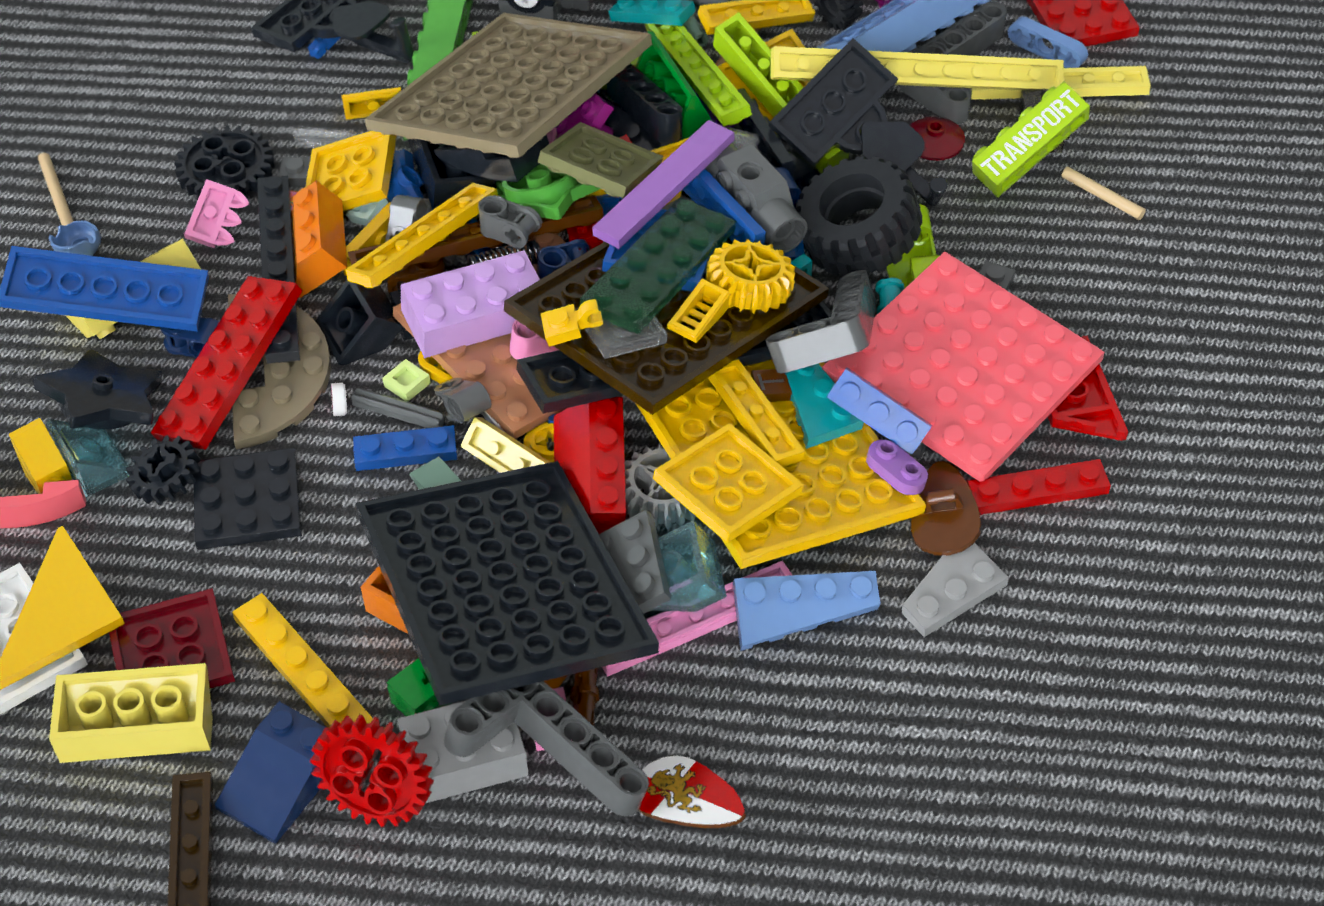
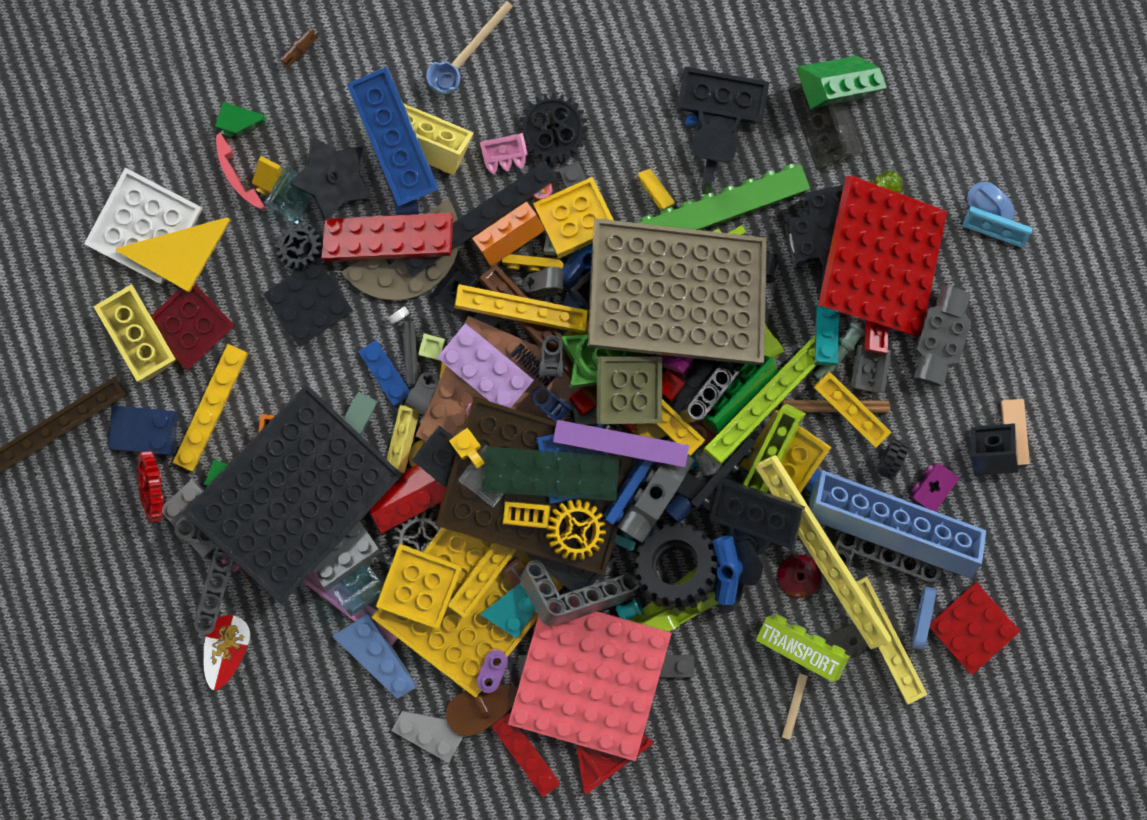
camera: 65 degrees right, 35 degrees up
(315, 137) = (608, 179): clear plate -> none
(869, 145) = (727, 582): none -> blue piece
(879, 411) = (517, 647): plate -> none

